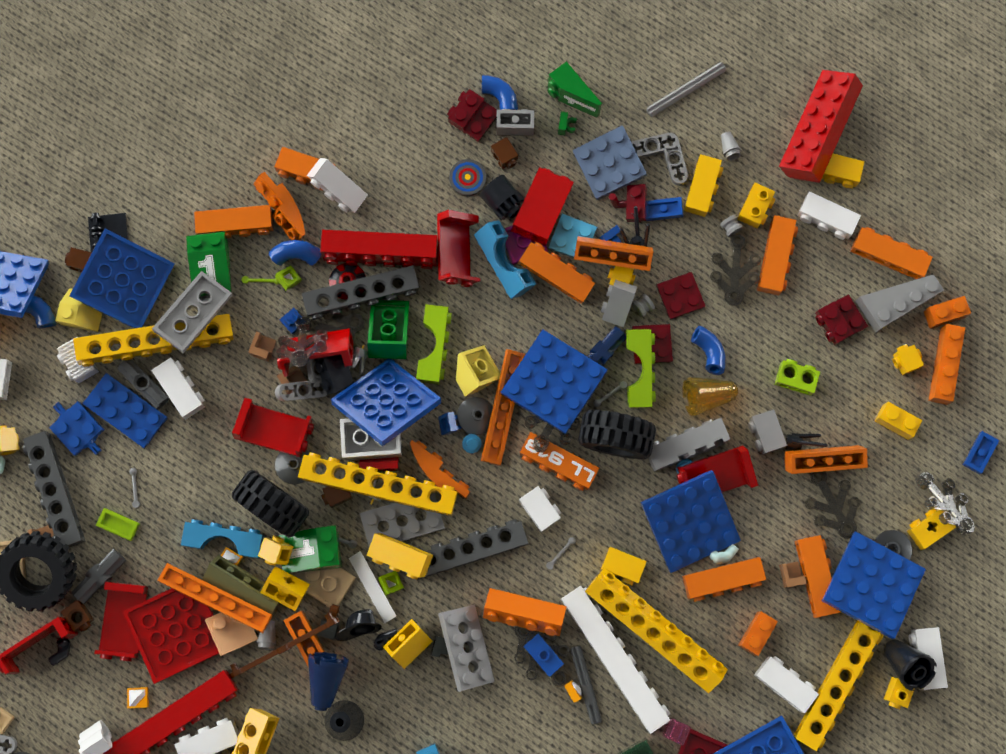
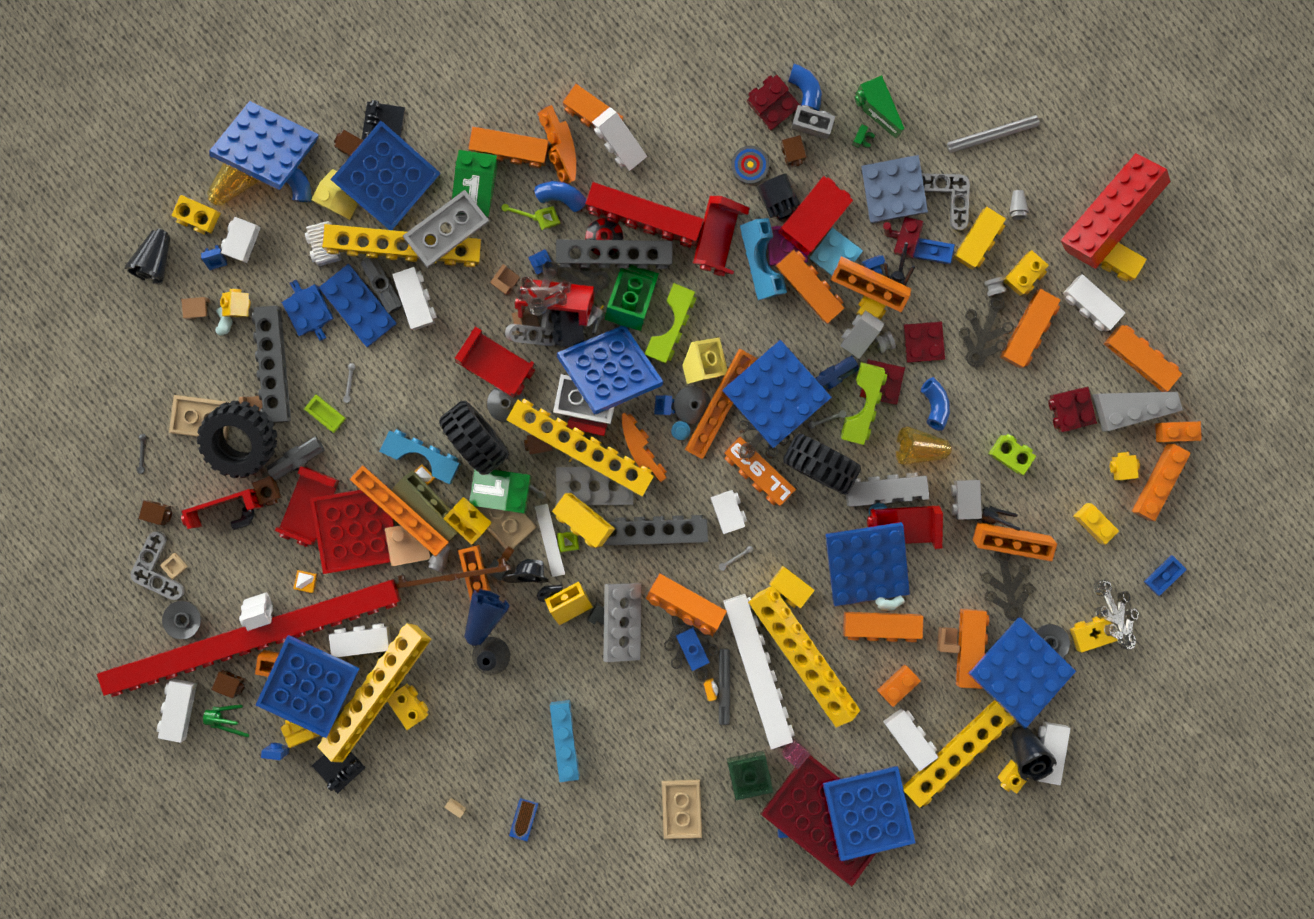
camera: 20 degrees right, 10 degrees up
(275, 551) = (467, 482): yellow brick -> none

